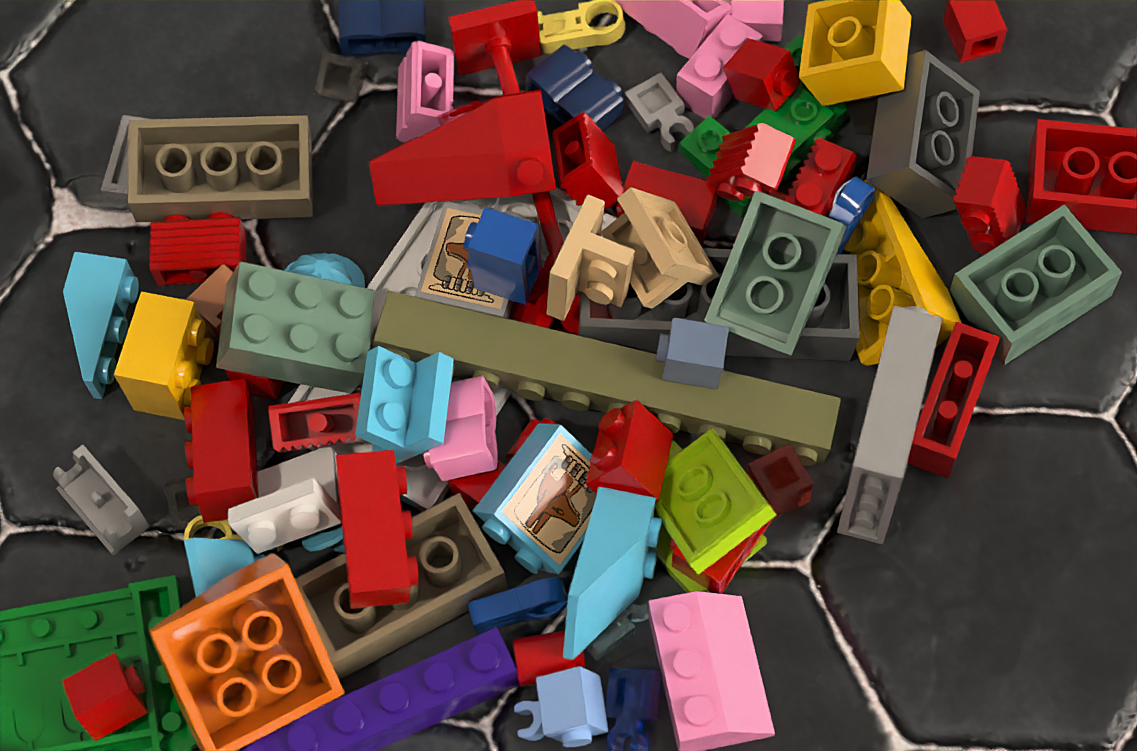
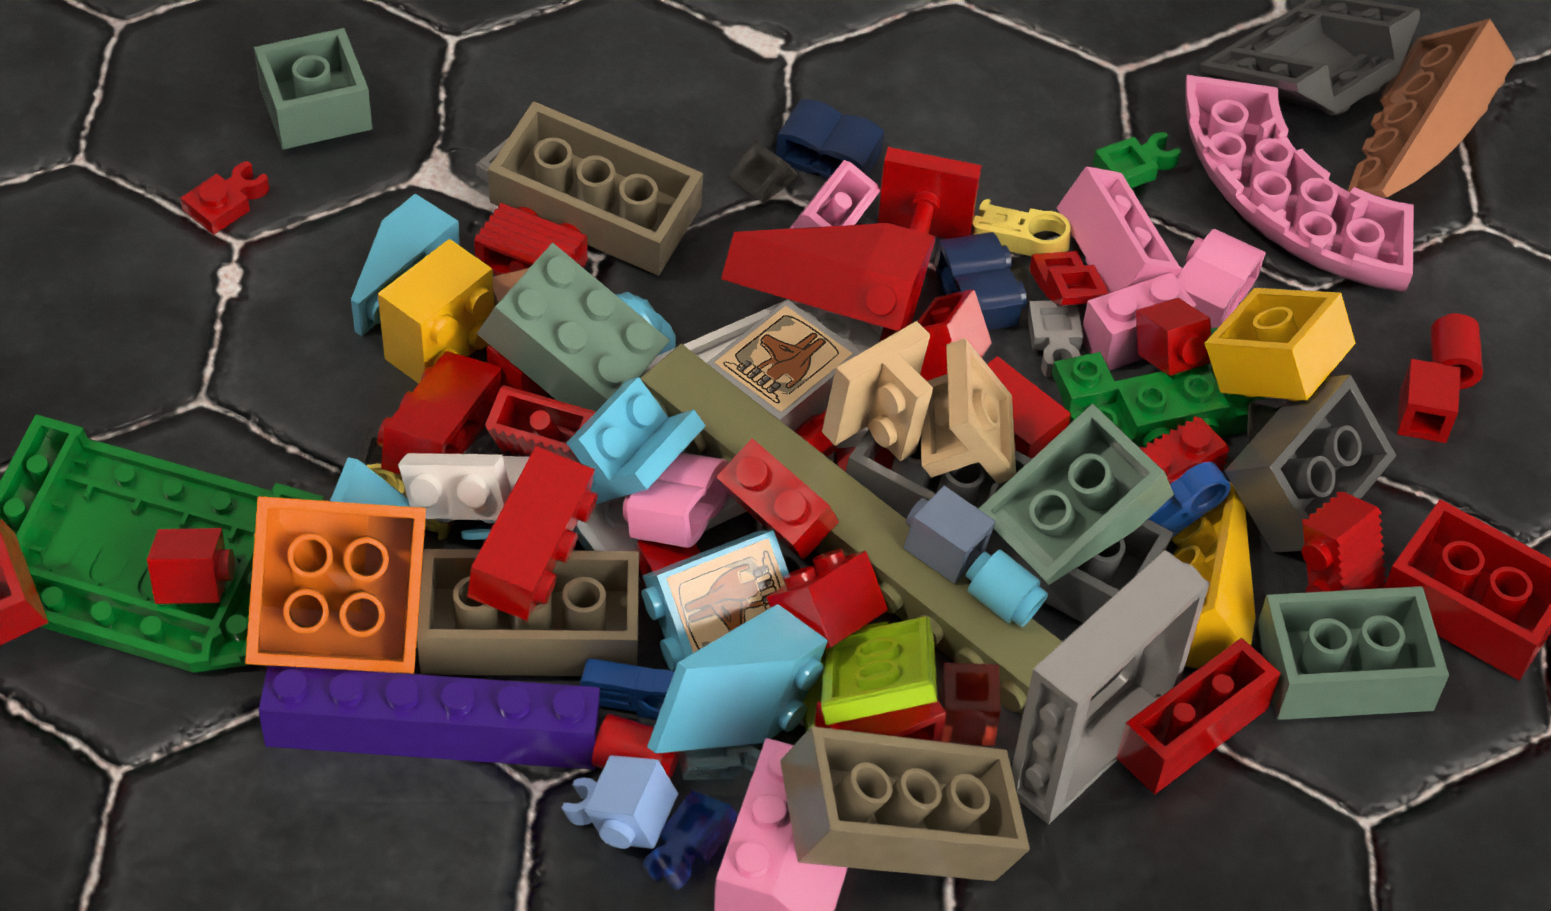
camera: 20 degrees right, 15 degrees down
(100, 502) = (300, 413): light grey hinge -> none
(504, 255) = (804, 352): blue brick -> none
(547, 394) = (777, 499): none -> red brick
(642, 57) = (1066, 278): none -> red slope
(750, 162) = (1115, 389): red brick -> none
(761, 375) = (1005, 587): none -> medium azure brick
(785, 604) = (903, 805): none -> dark tan brick

